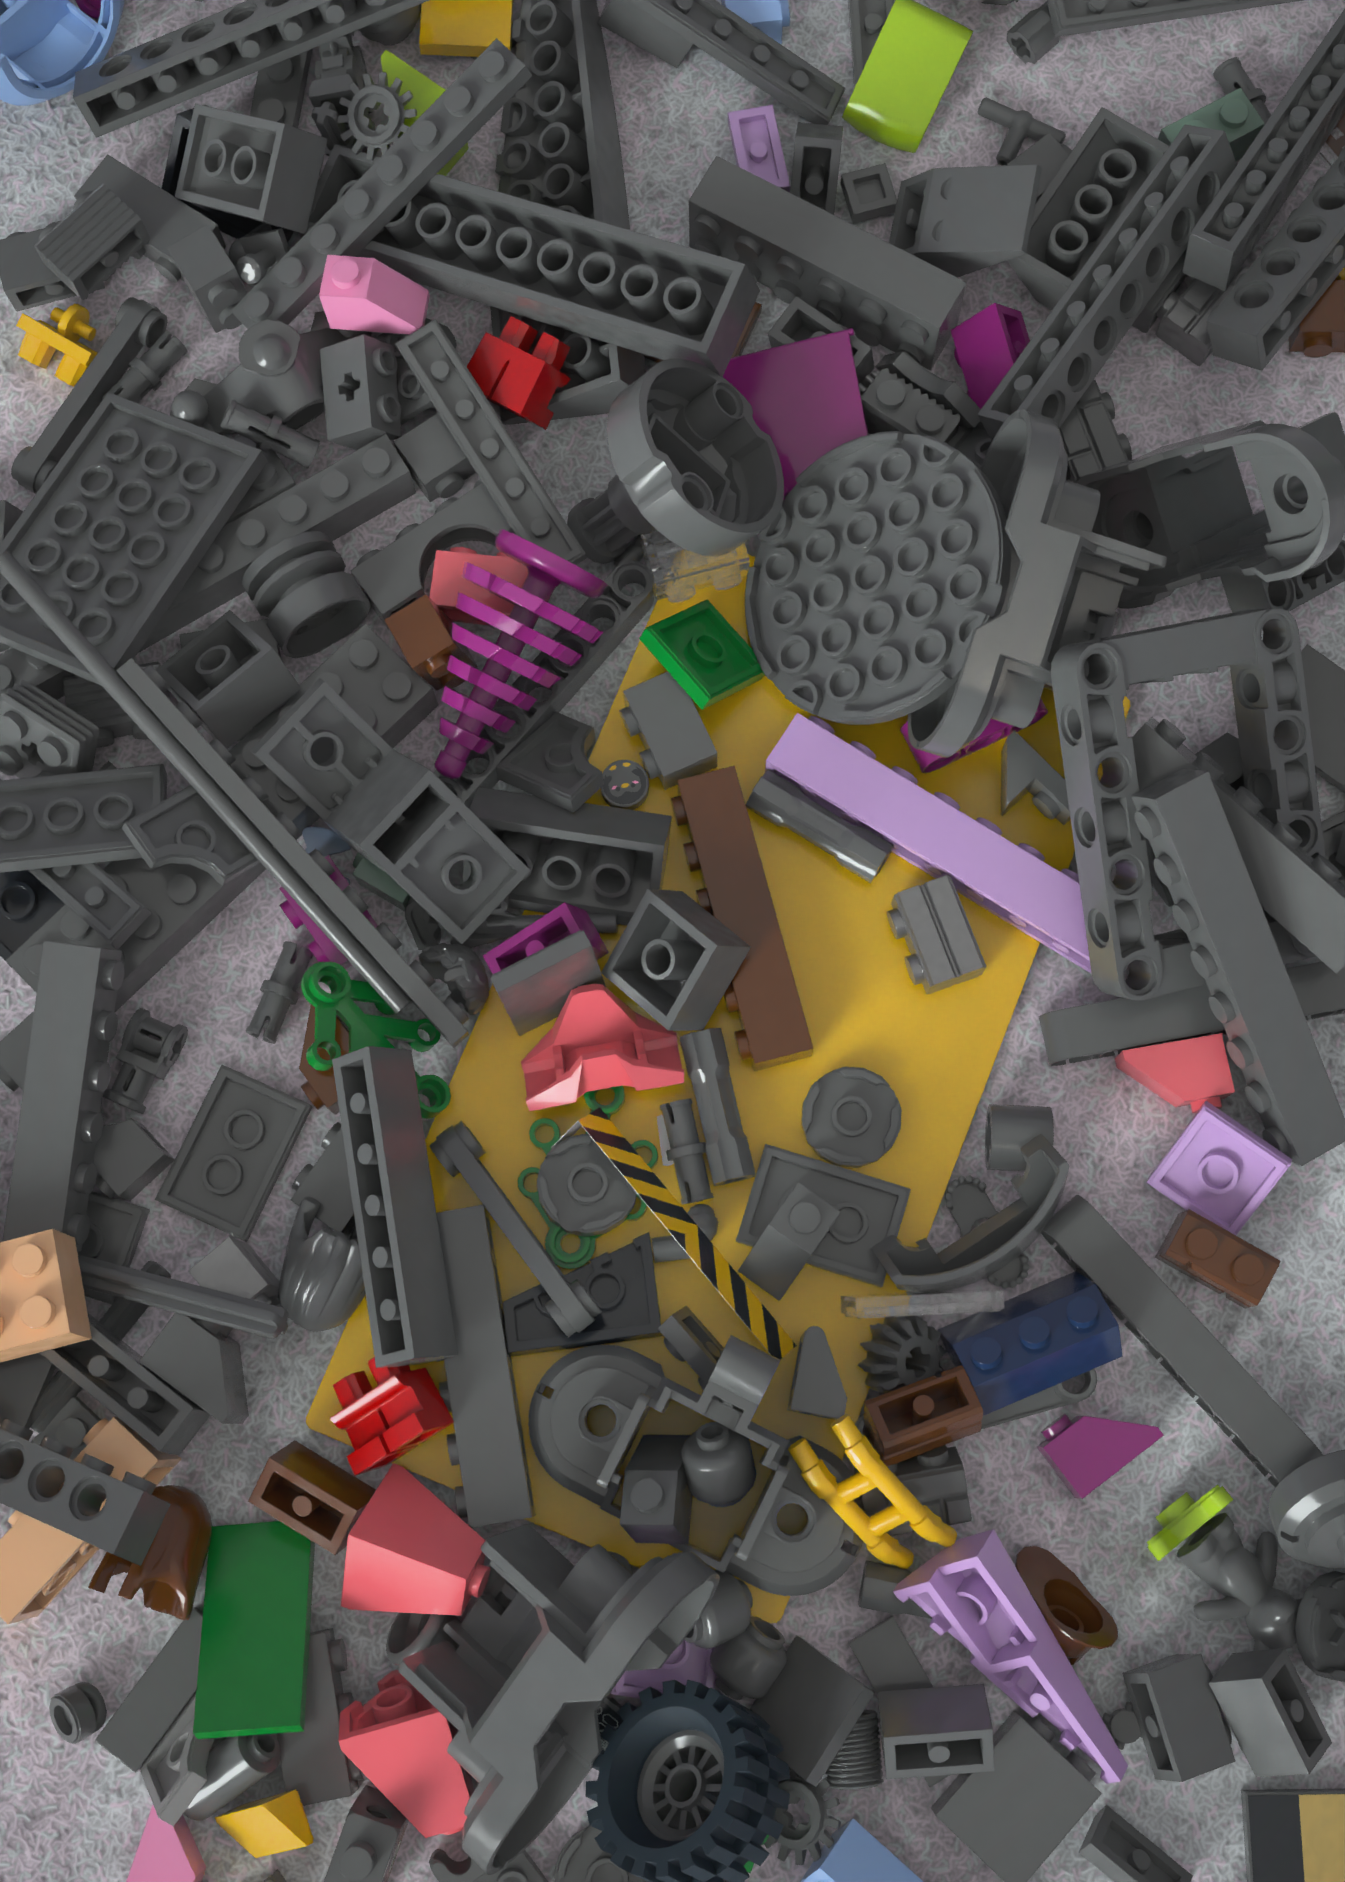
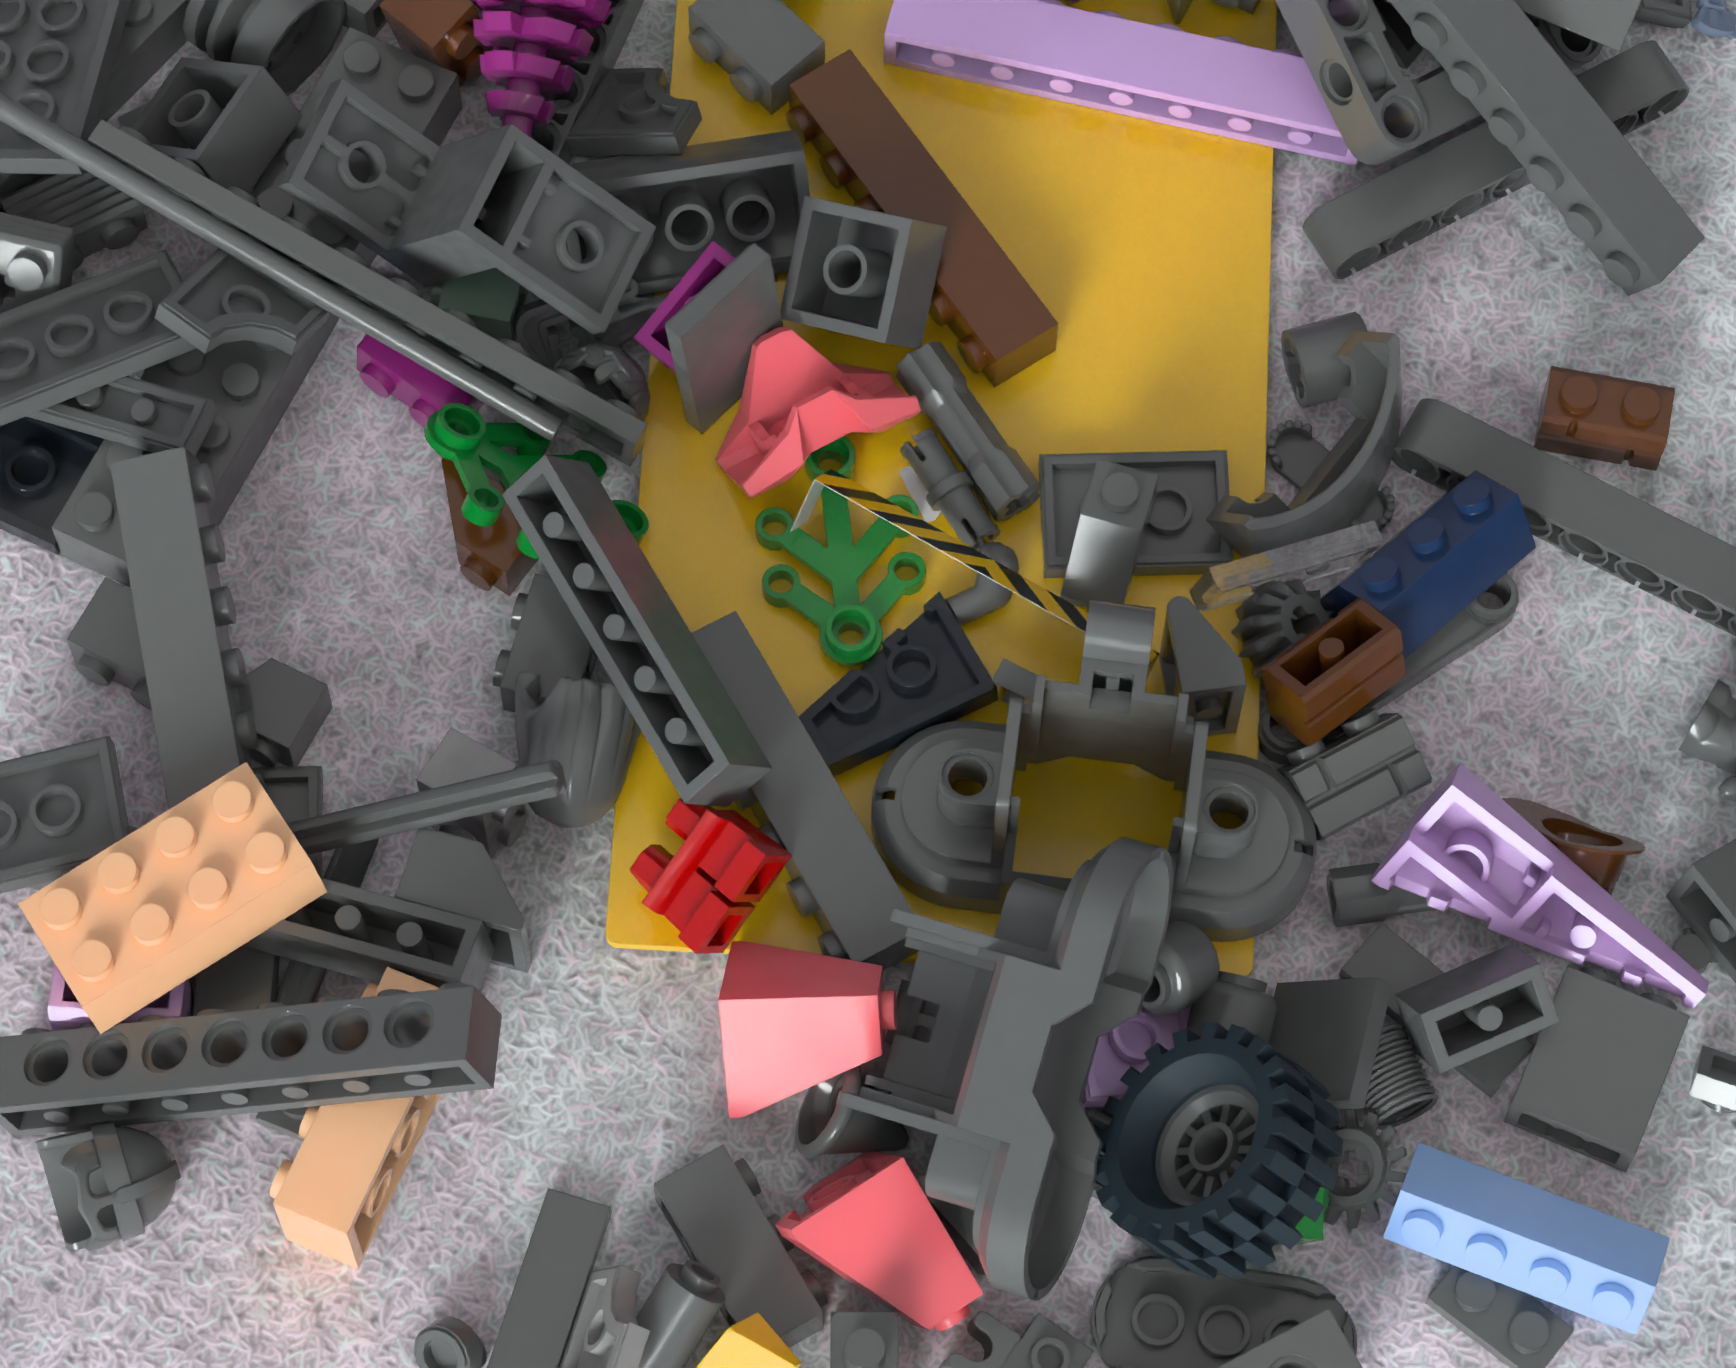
camera: 25 degrees left, 10 degrees down
(144, 1058) = (261, 592): dark grey connector -> none
(173, 1560) = (493, 1139): reddish brown hair -> none
(234, 1153) = (402, 671): dark grey tile -> none
(254, 1631) = (639, 1165): green tile -> none
(279, 992) = (393, 476): dark grey pin -> none
(311, 1495) = (650, 1006): reddish brown brick -> none
(569, 1304) = (877, 683): dark grey piece -> none
(583, 1188) = (847, 559): dark grey tile -> none
(625, 785) = (724, 116): dark grey tile -> none
(656, 1492) = (1064, 822): dark grey slope -> none
(718, 1465) = (1124, 765): dark grey head -> none
(849, 844) = (1016, 102): dark grey axle -> none
(851, 1117) = (1127, 397): dark grey tile -> none
(871, 1474) = (1303, 736): yellow piece -> none
(936, 935) = (1152, 168): flat silver brick -> none
(1093, 1449) = (1540, 664): magenta slope -> none
(1182, 1070) = (1486, 233): coral slope -> none
(1184, 1518) = (1674, 704): lime piece -> none
(1219, 1169) = (1568, 318): lavender tile -> none

